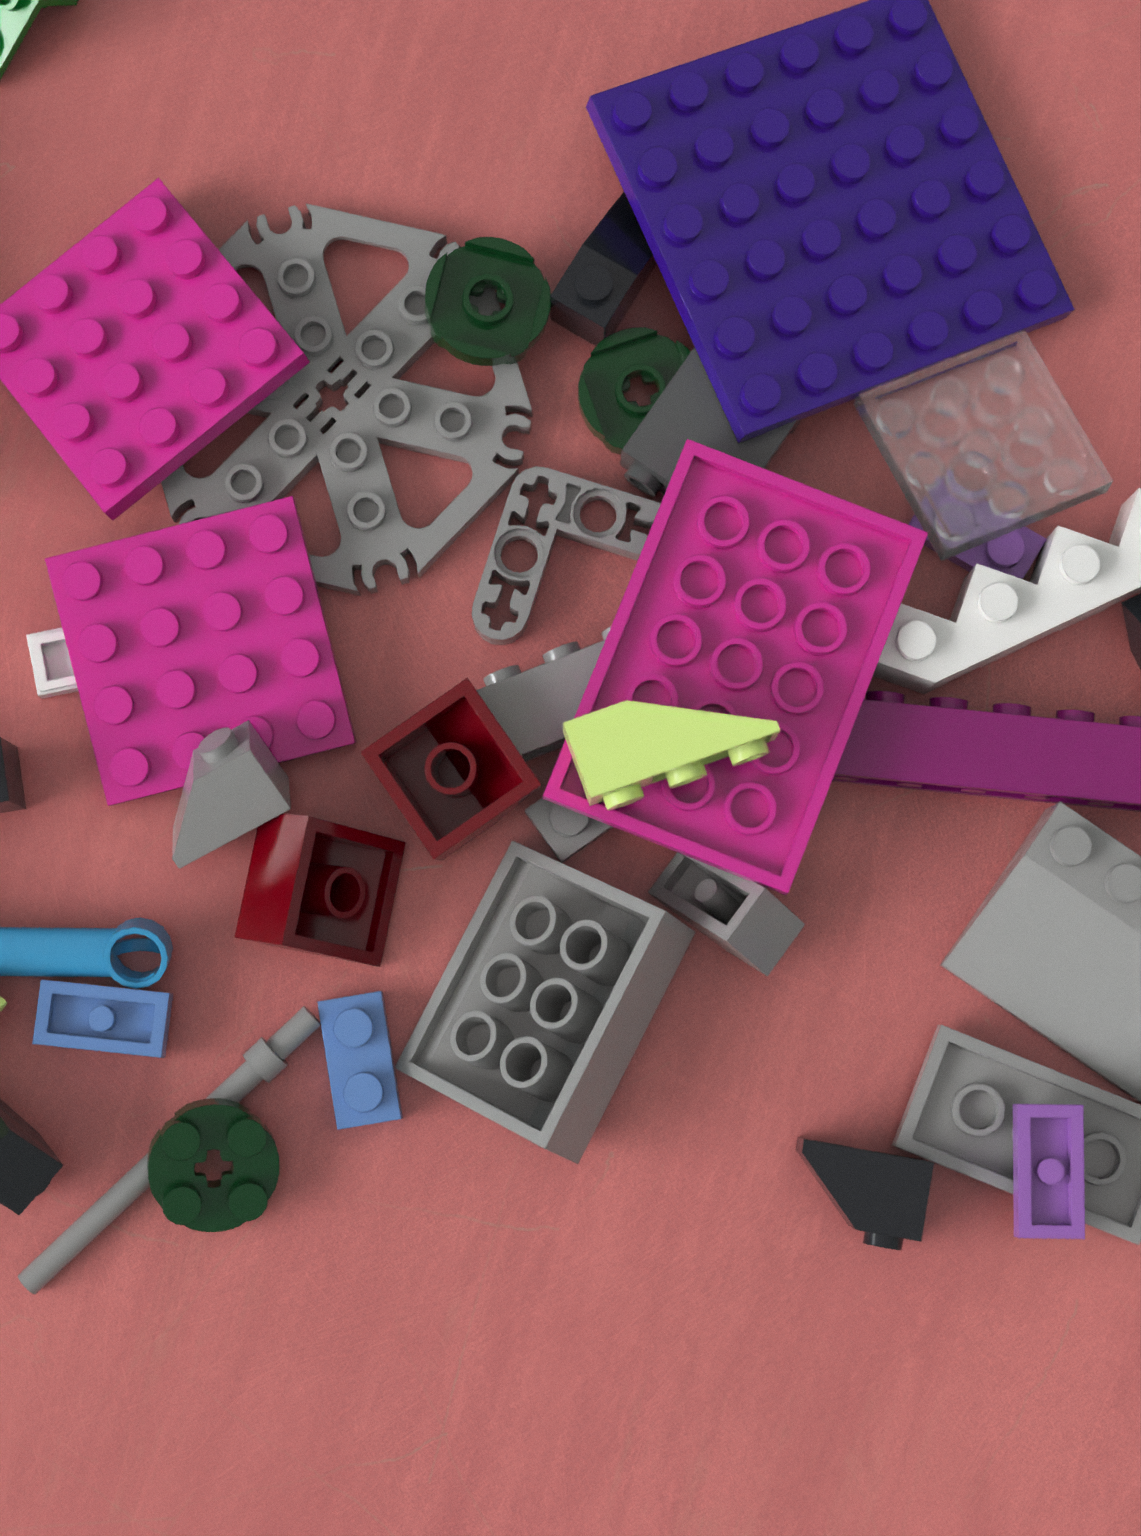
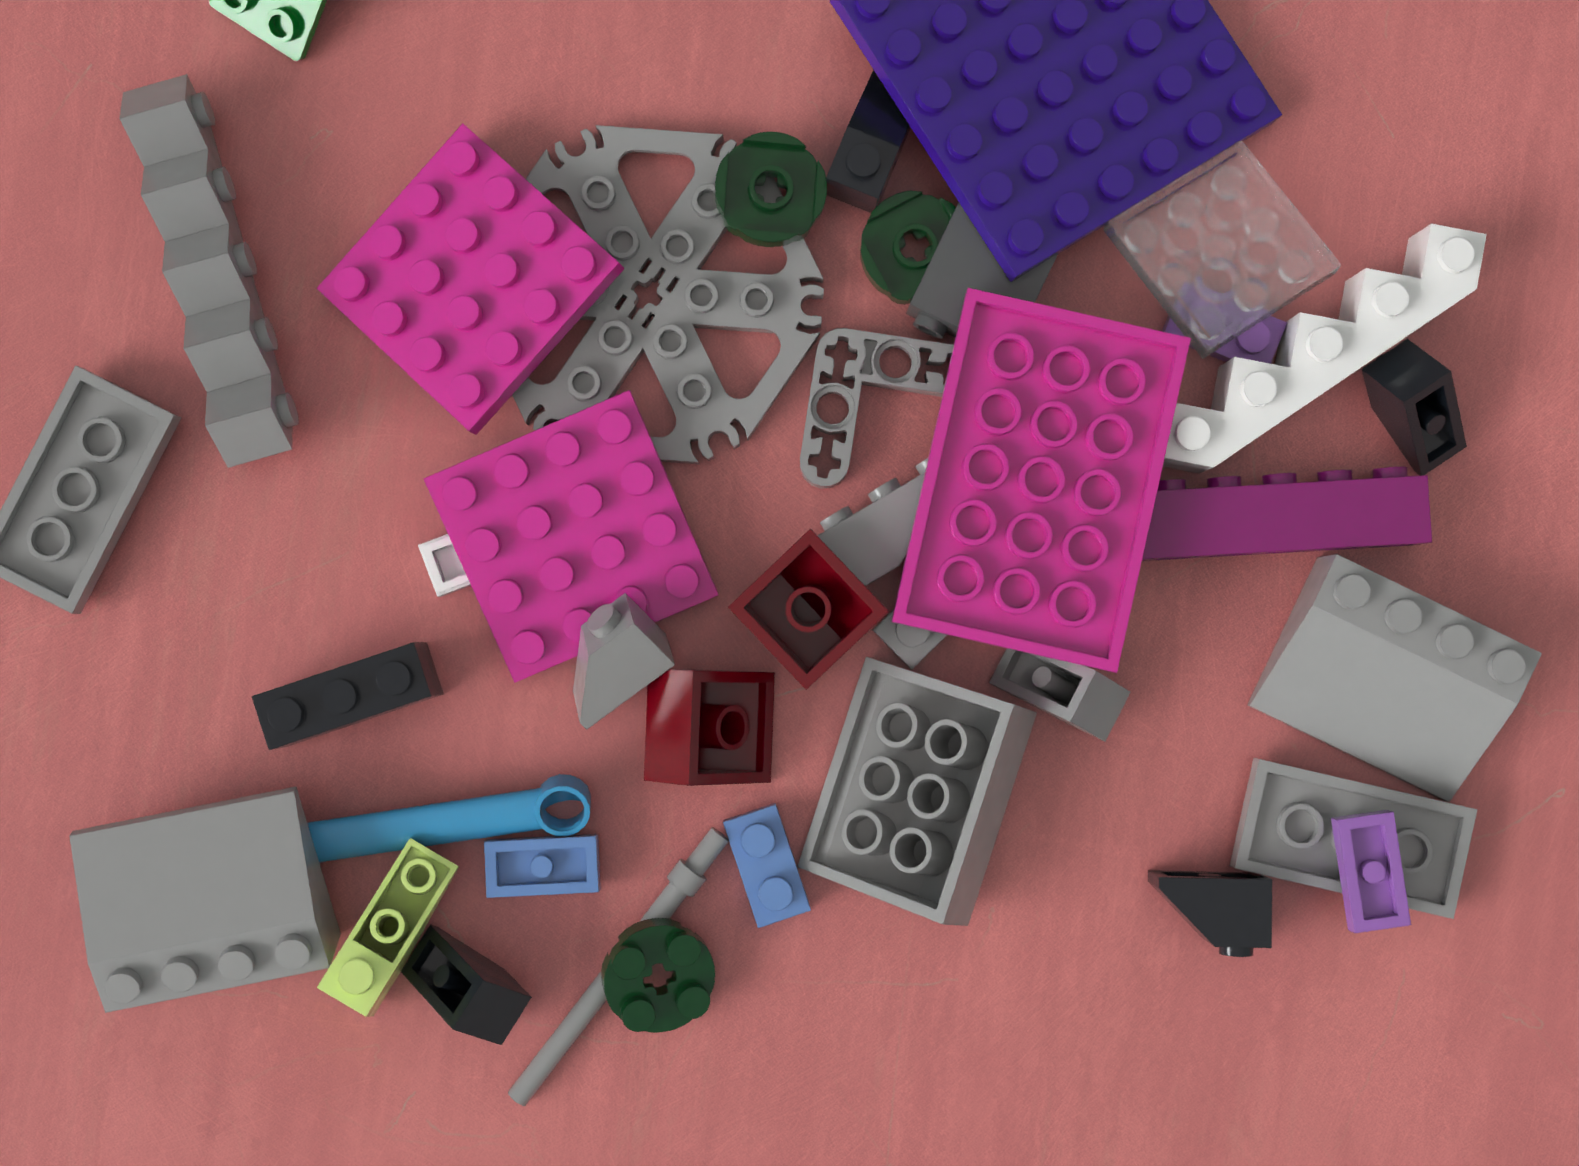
camera: 10 degrees left, 5 degrees up
(645, 743) = (977, 564): yellowish green slope -> none

